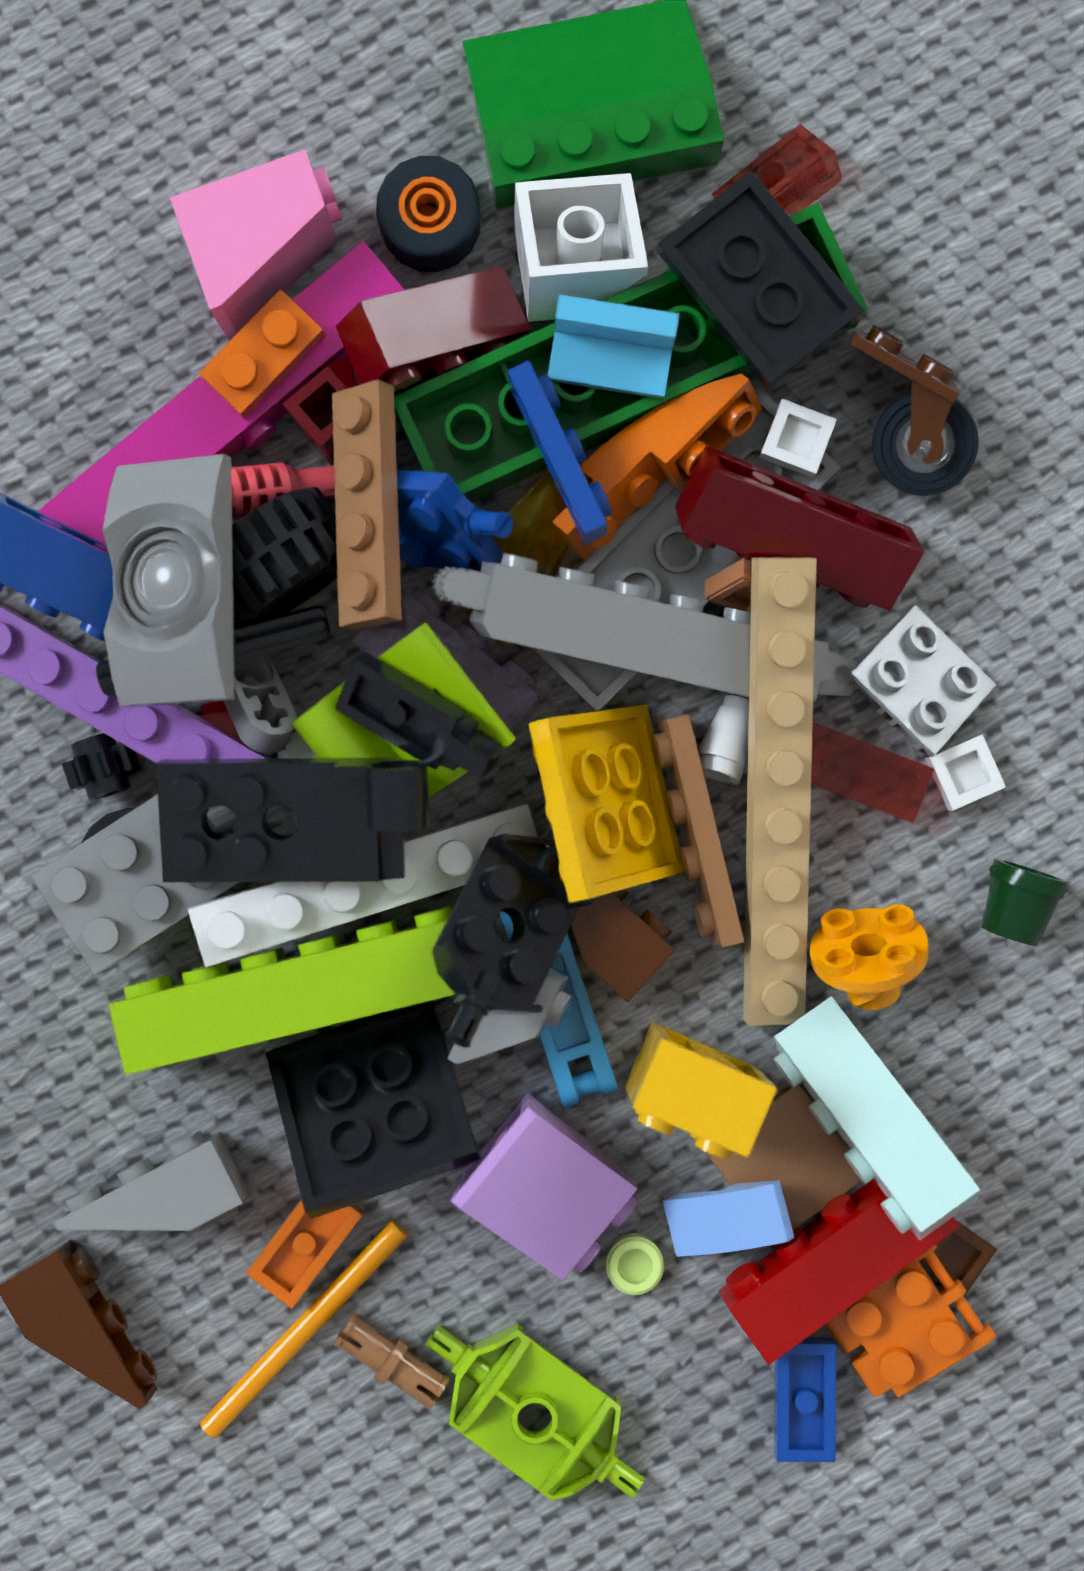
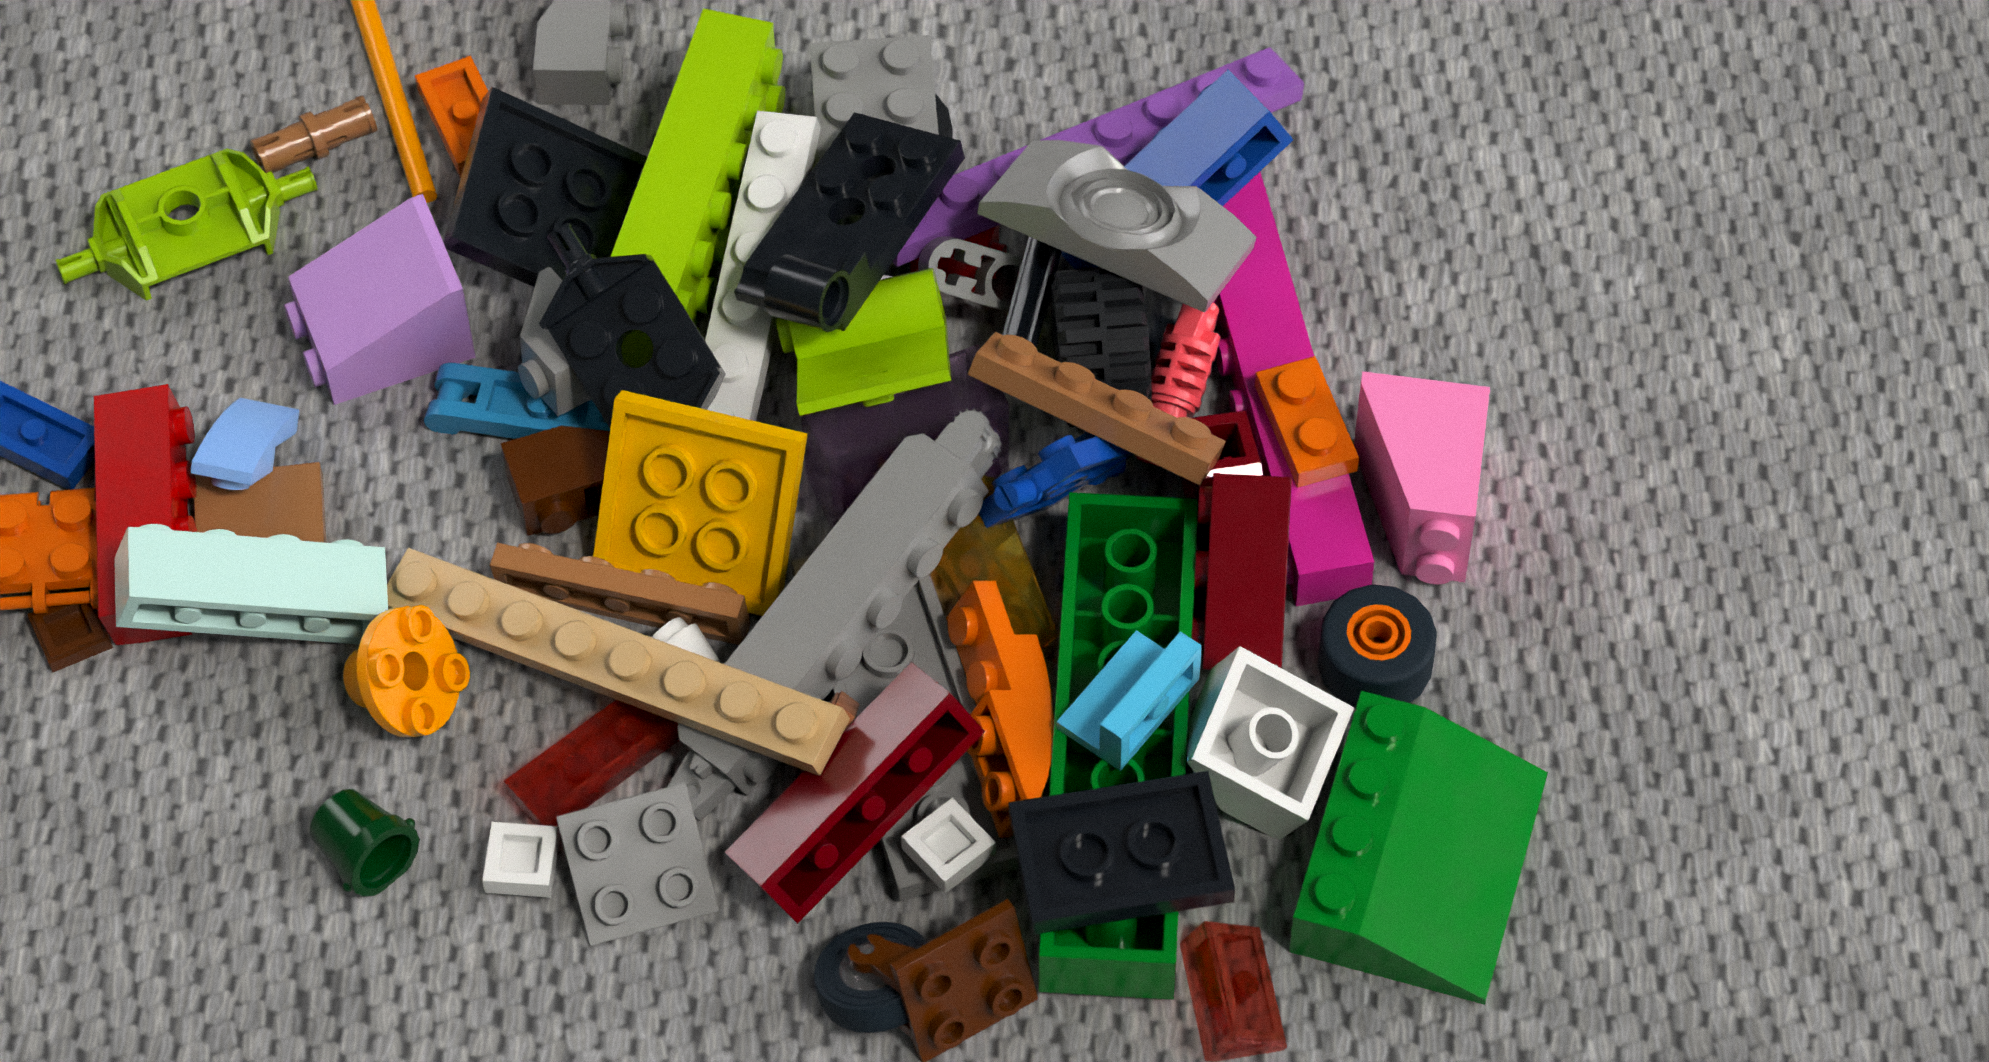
camera: 120 degrees right, 30 degrees down
(100, 766) = (996, 136): black gear -> none
(415, 718) = (864, 342): black hinge -> none
(560, 451) = (1052, 591): blue plate -> none
(634, 1264) = (258, 363): yellowish green tile -> none
(698, 1091) = (384, 442): yellow brick -> none

